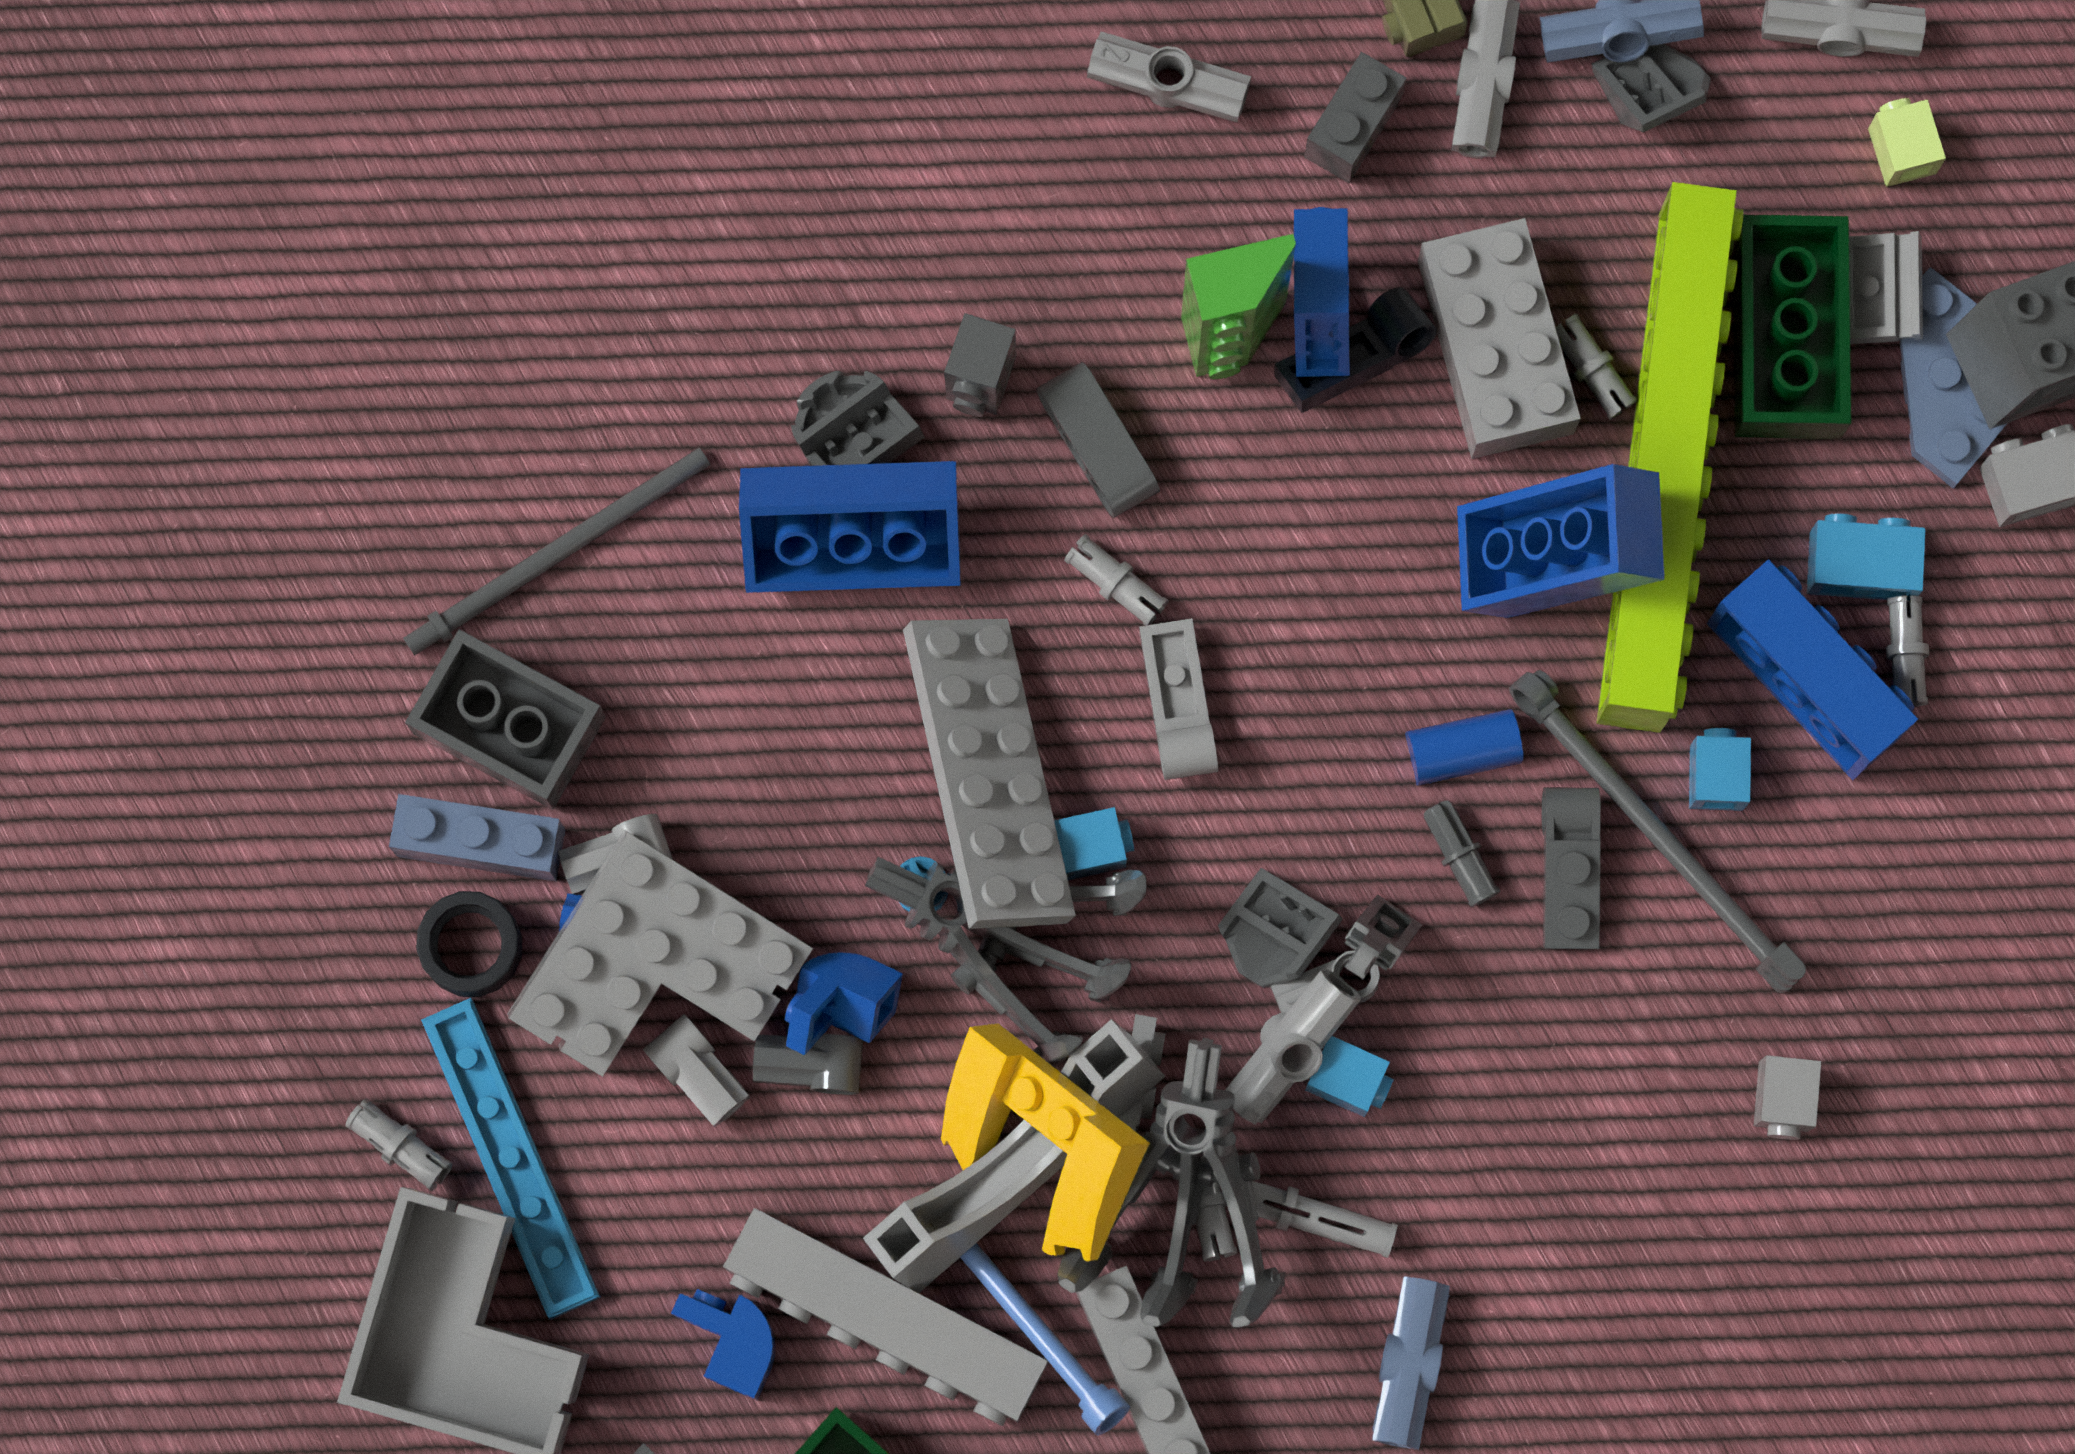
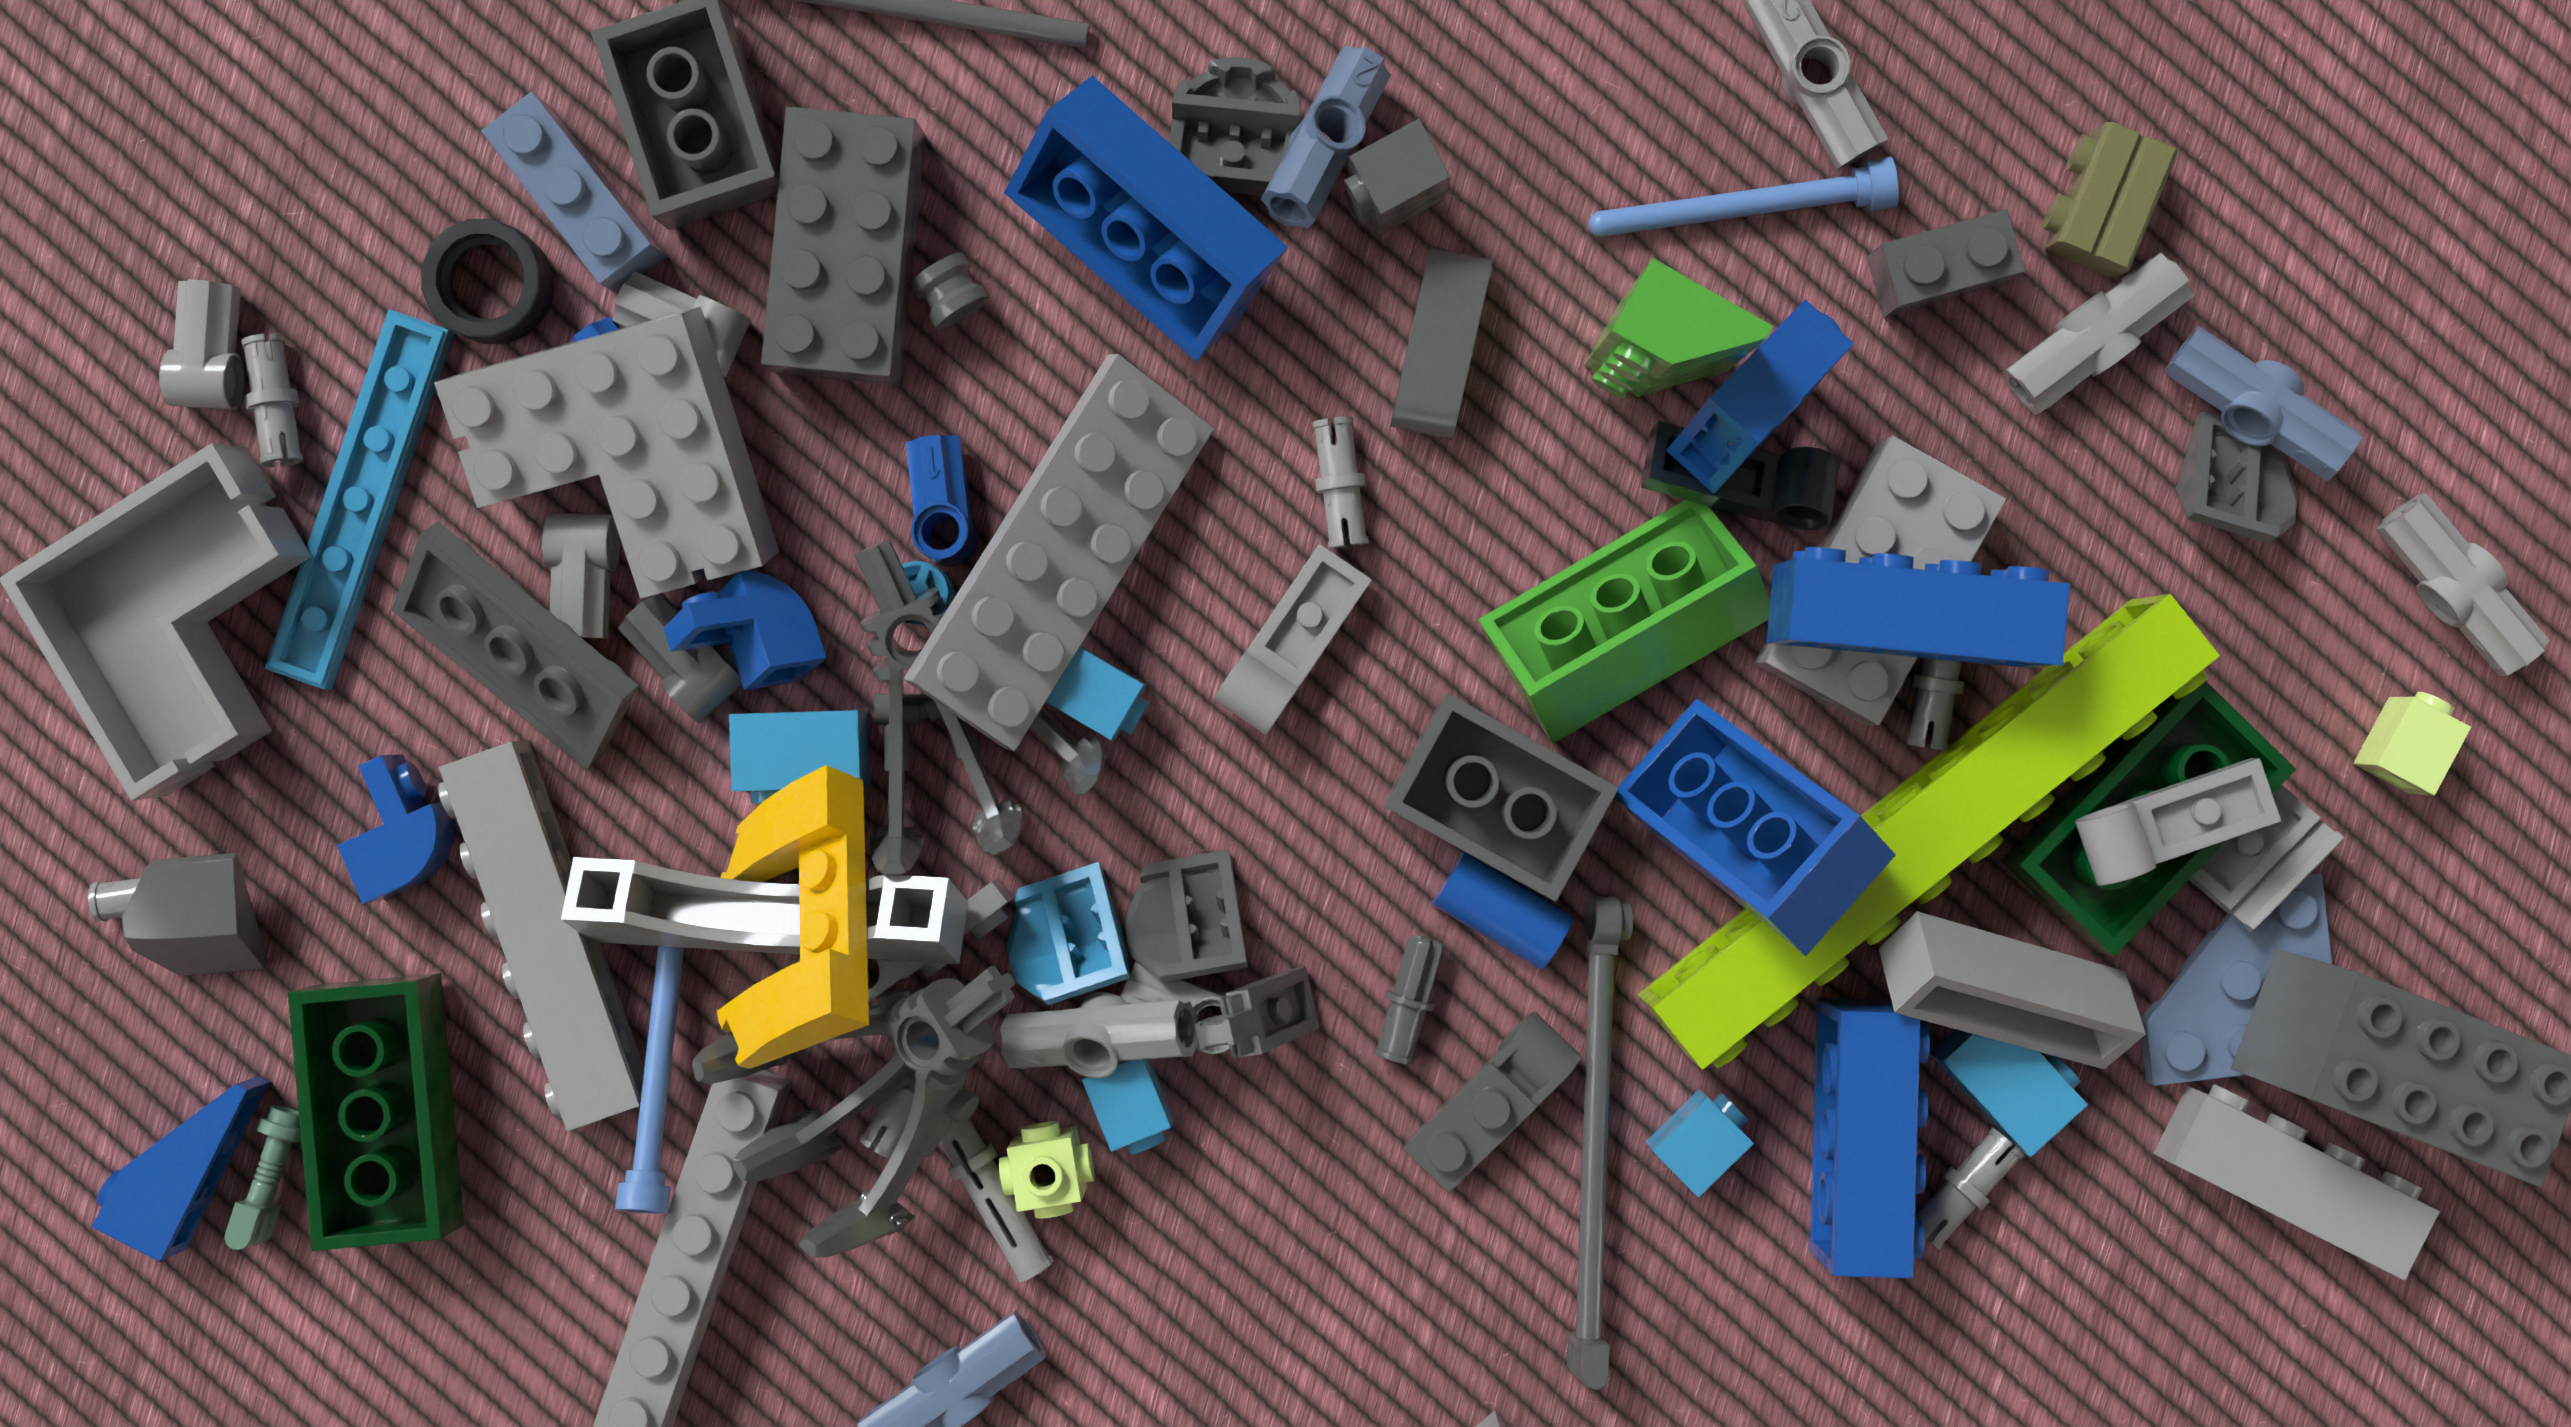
camera: 35 degrees right, 10 degrees up
(333, 1160) = (204, 360): none -> light grey piece
(676, 716) = (843, 246): none -> dark grey brick
(699, 1149) = (513, 645): none -> dark grey plate
(766, 684) = (949, 291): none -> dark grey wheel
(877, 813) = (939, 494): none -> blue piece
(913, 379) = (1312, 159): none -> sand blue piece
(926, 1056) = (782, 747): none -> dark azure brick
(1214, 1005) = (1067, 936): none -> dark azure slope
(1266, 112) = (1869, 186): none -> medium blue piece
(1332, 1185) = (1063, 1153): none -> yellowish green brick
(1368, 499) = (1627, 617): none -> bright green slope
(1395, 674) = (1500, 796): none -> dark grey brick
(1534, 326) = (1917, 612): none -> blue brick
(1806, 307) = (2177, 821): none -> light grey plate
(1811, 500) = (2010, 991): none -> light grey brick

